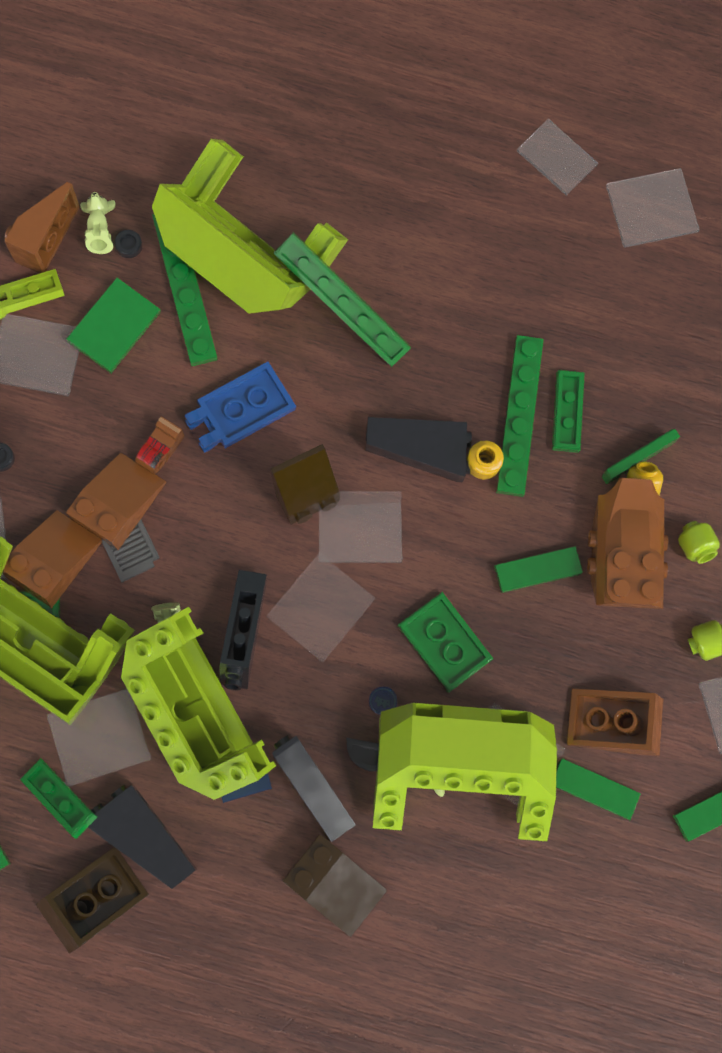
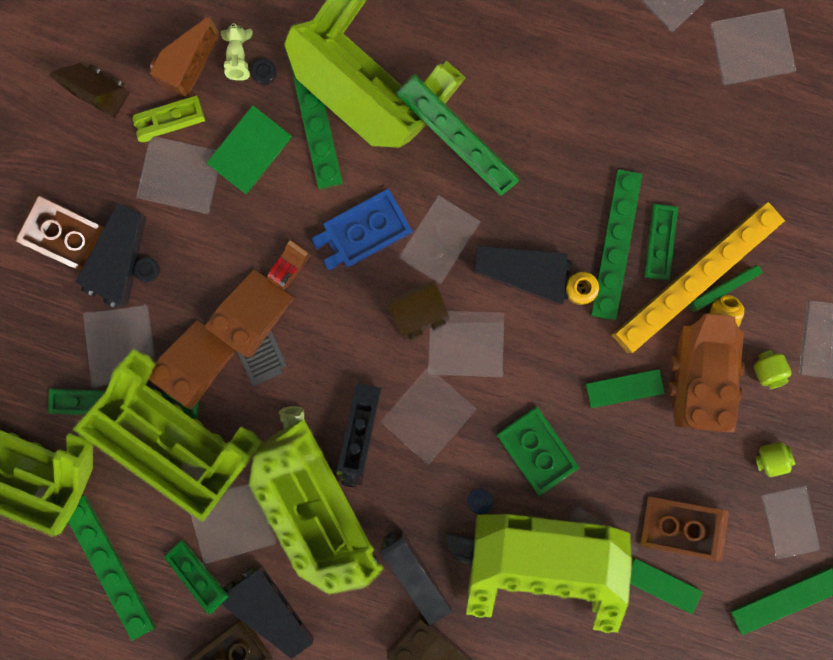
camera: 15 degrees right, 10 degrees up
(326, 413) = (439, 239): none -> clear tile
(609, 446) = (697, 277): none -> yellow brick

